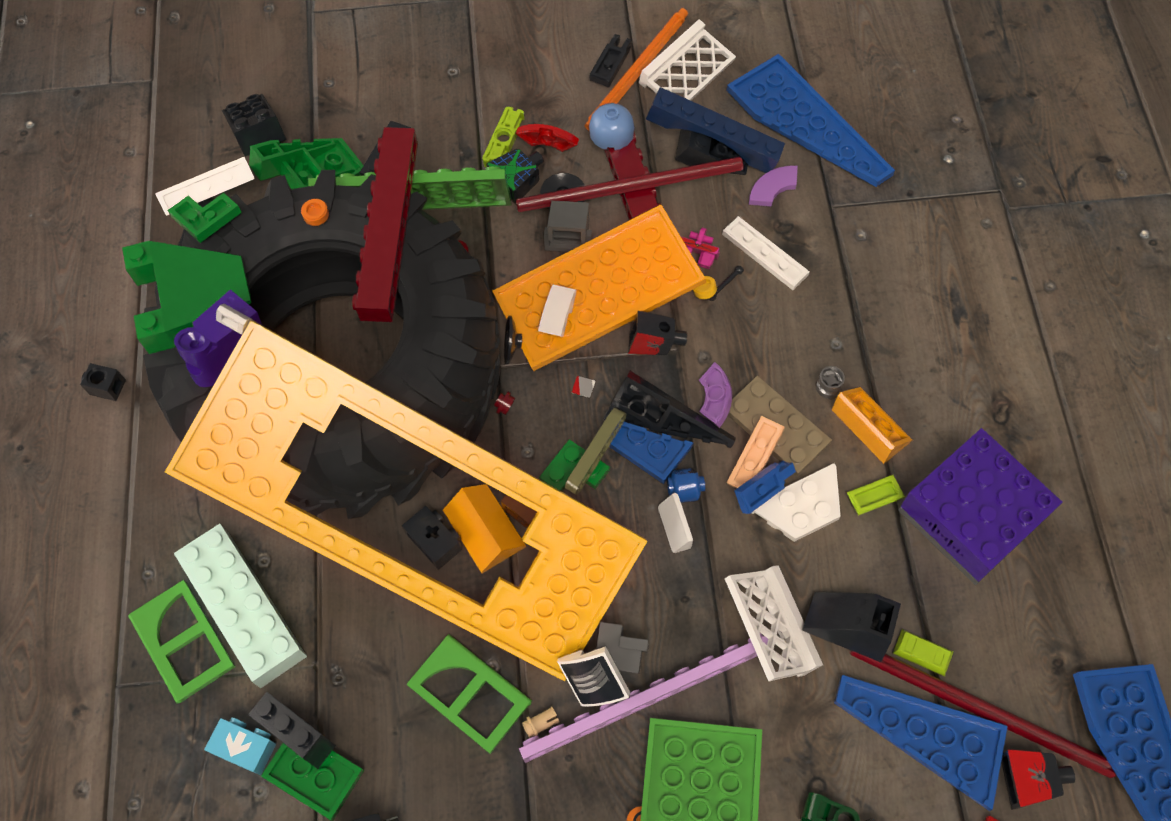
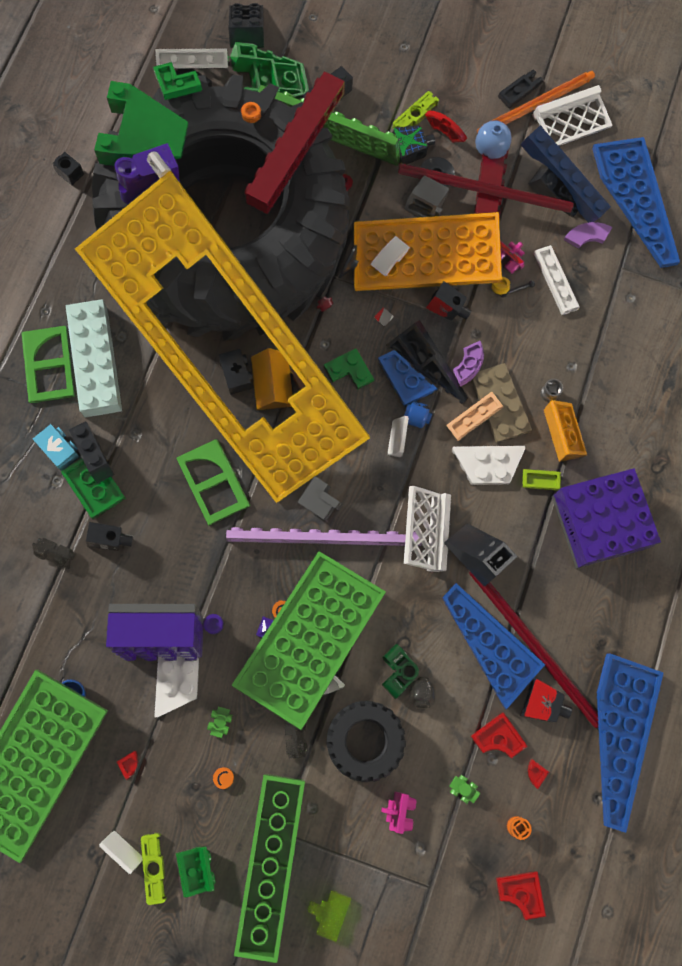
camera: 15 degrees right, 10 degrees up
(540, 722) = (249, 521): tan pin -> none
(594, 677) = (294, 509): slope -> none
(595, 451) = (368, 363): olive beam -> none
(763, 486) = (468, 438): blue hinge -> none
(923, 652) = (517, 594): lime tile -> none

